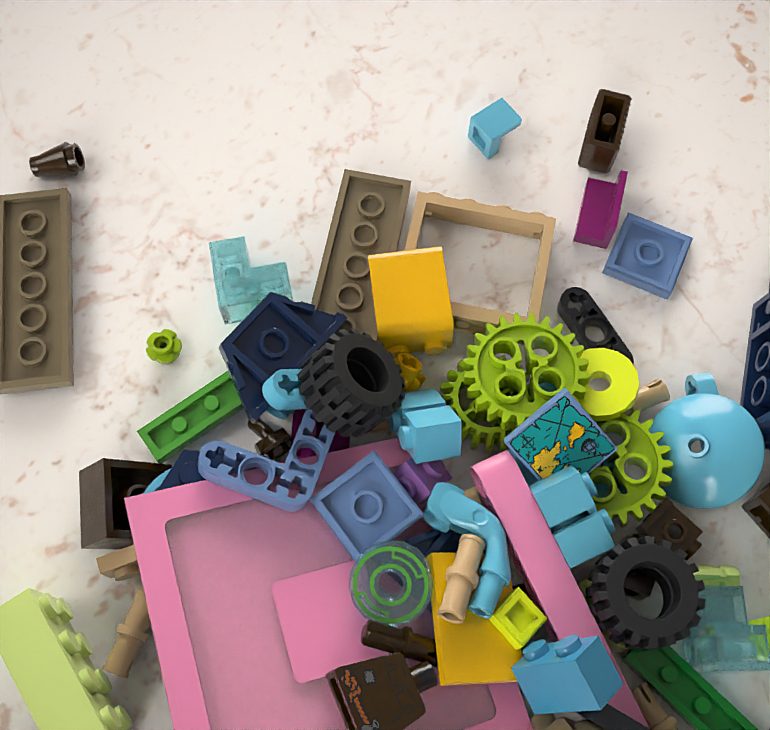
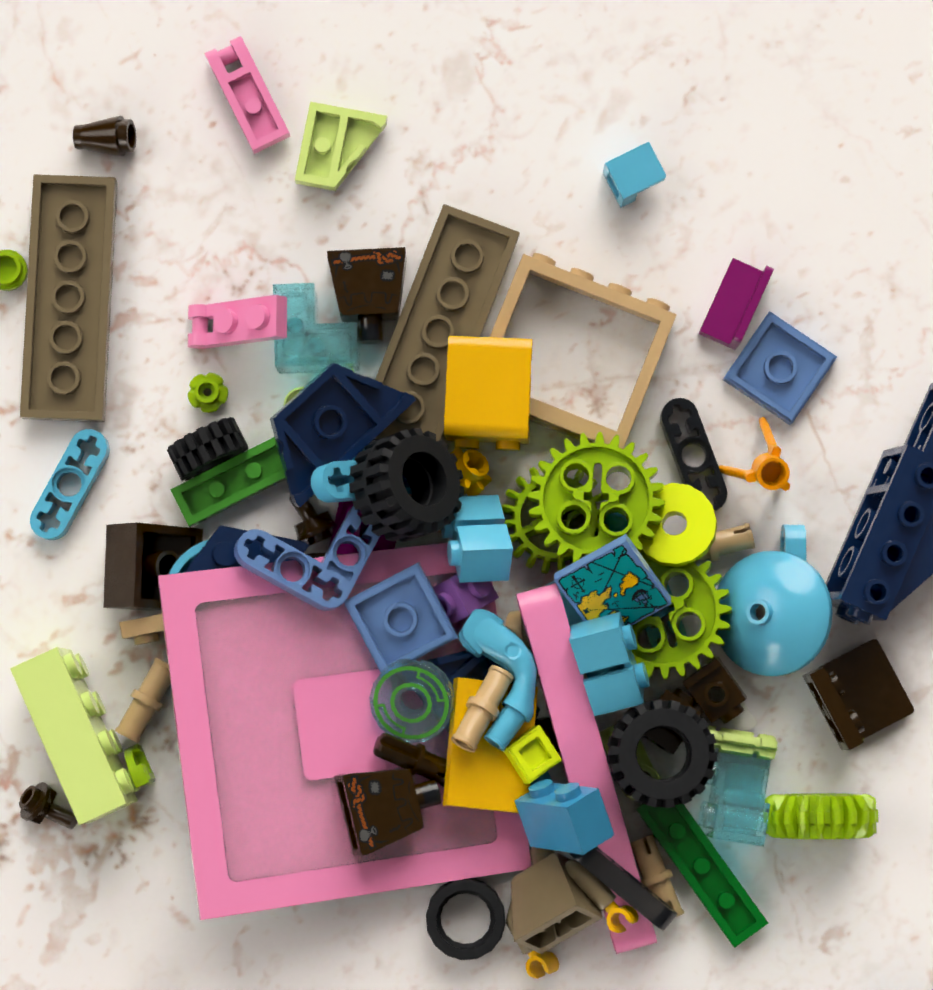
camera: 10 degrees right, 15 degrees up
(23, 466) = (52, 488): none -> medium azure beam
(130, 703) = (138, 766): none -> lime tile
(164, 386) = (207, 448): none -> black tyre
(173, 118) = (248, 96): none -> bright pink plate
(182, 279) = (238, 322): none -> bright pink plate
(248, 141) = (334, 144): none -> yellowish green wing
(292, 237) = (368, 287): none -> torso
(604, 131) = (763, 204): dark brown brick -> none
(669, 323) = (767, 468): none -> light orange plant

